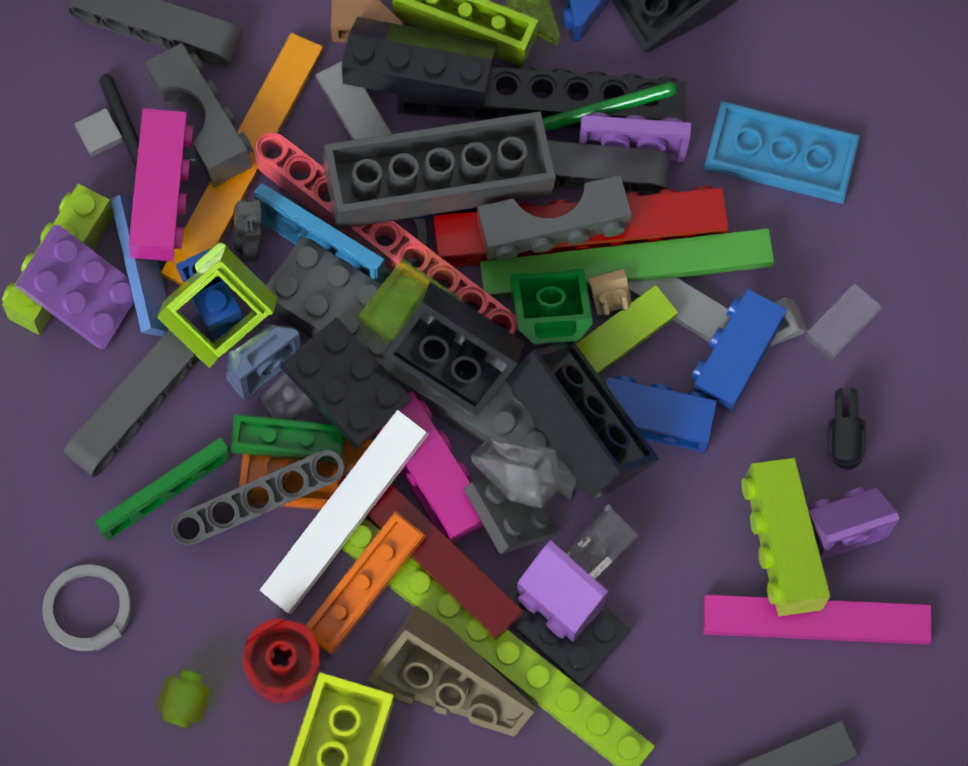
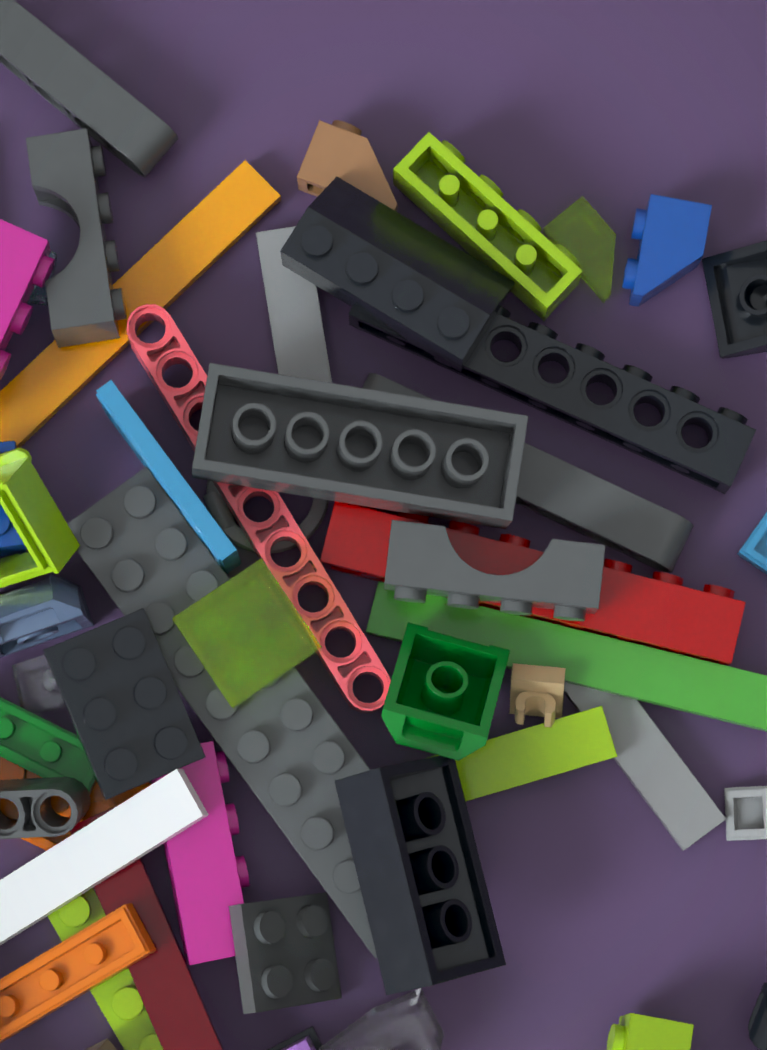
camera: 25 degrees right, 10 degrees up
(247, 228) = (74, 429): dark grey hinge -> none
(454, 349) = (282, 716): black slope -> none
(519, 470) = (309, 910): clear slope -> none
(611, 105) = (614, 430): green piece -> none
(636, 132) = (655, 482): medium lavender plate -> none
(665, 414) = (540, 888): blue brick -> none
(738, 349) = (677, 840): blue brick -> none

